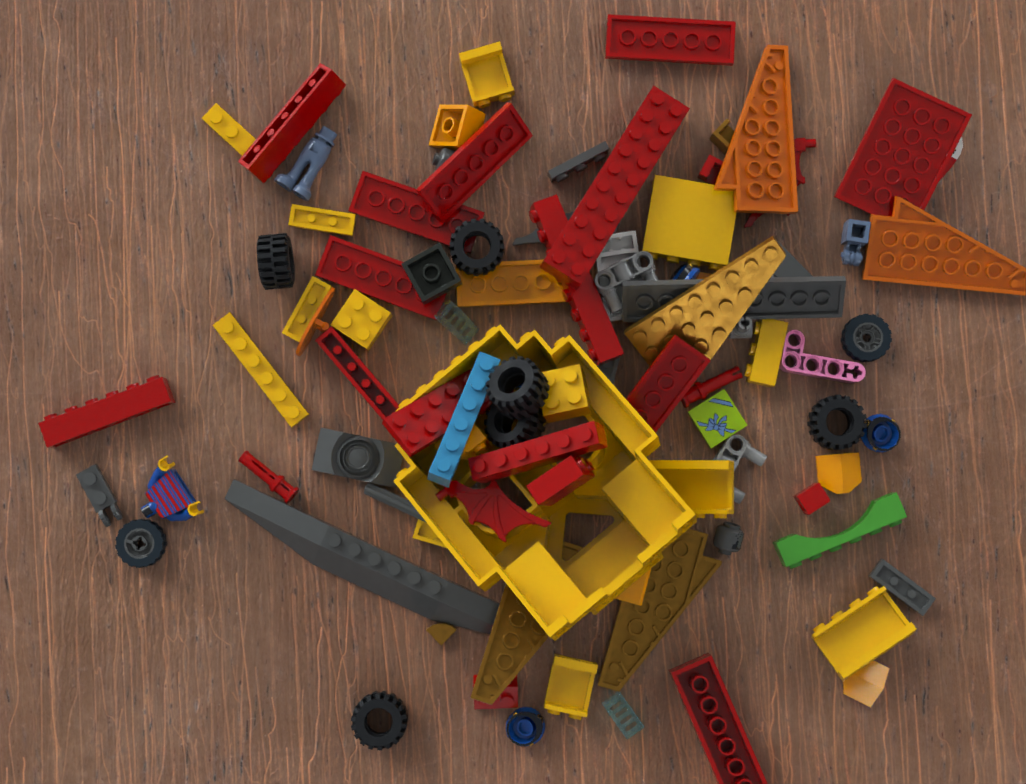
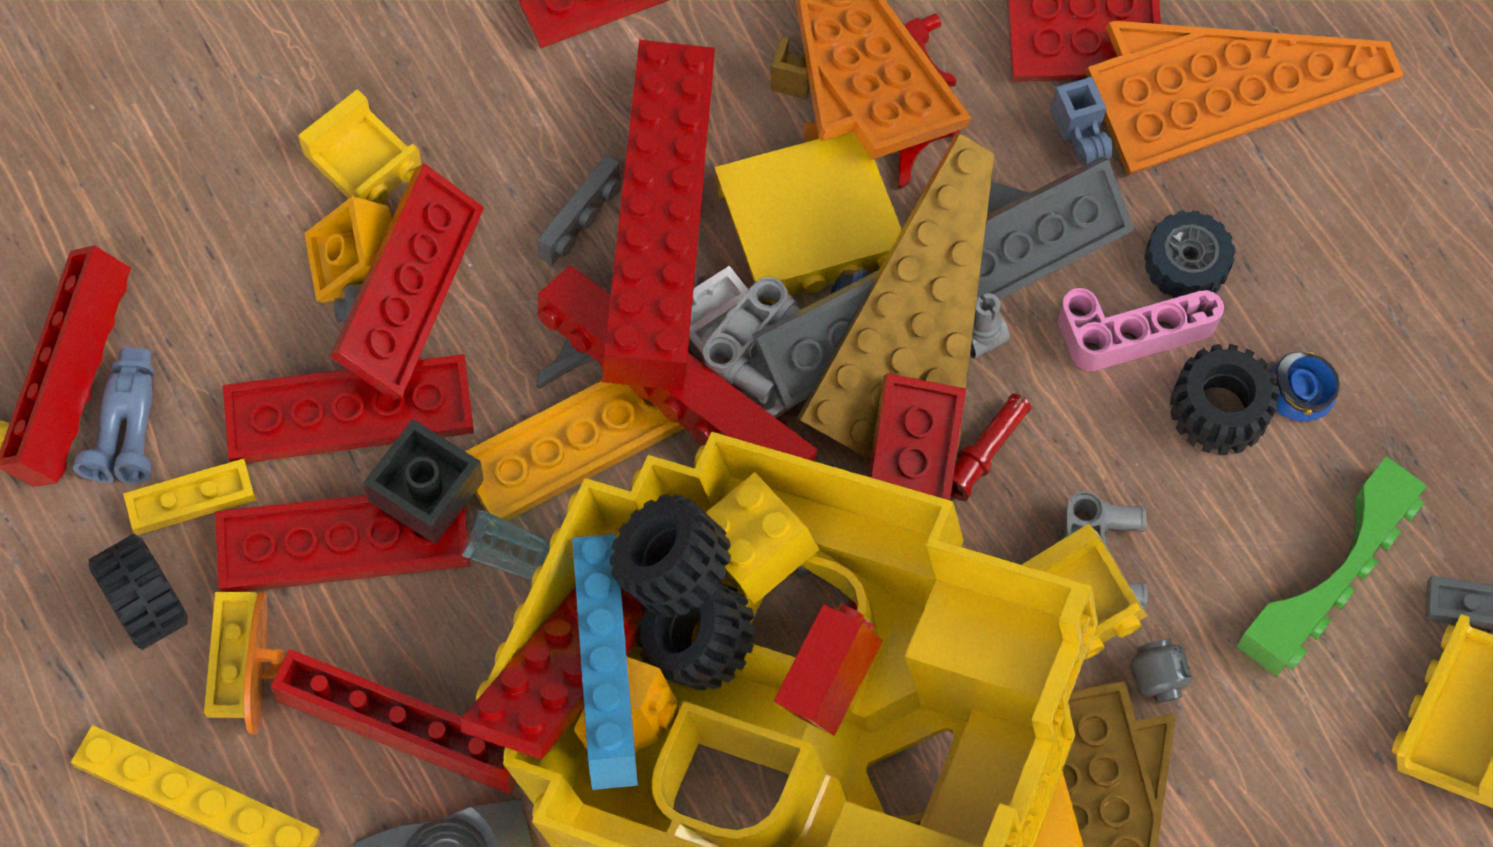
camera: 25 degrees left, 20 degrees down
(361, 320) = (339, 620): yellow brick -> none
(482, 229) = (480, 375): black tyre -> none
(491, 508) = (730, 790): red animal -> none
(538, 452) = (760, 645): red brick -> none
(710, 170) = (798, 122): red panel -> none
(717, 418) = (1028, 490): lime tile -> none
(766, 352) = (1046, 350): yellow brick -> none
(811, 498) = (1258, 539): red panel -> none
(839, 472) = (1273, 478): light orange slope -> none

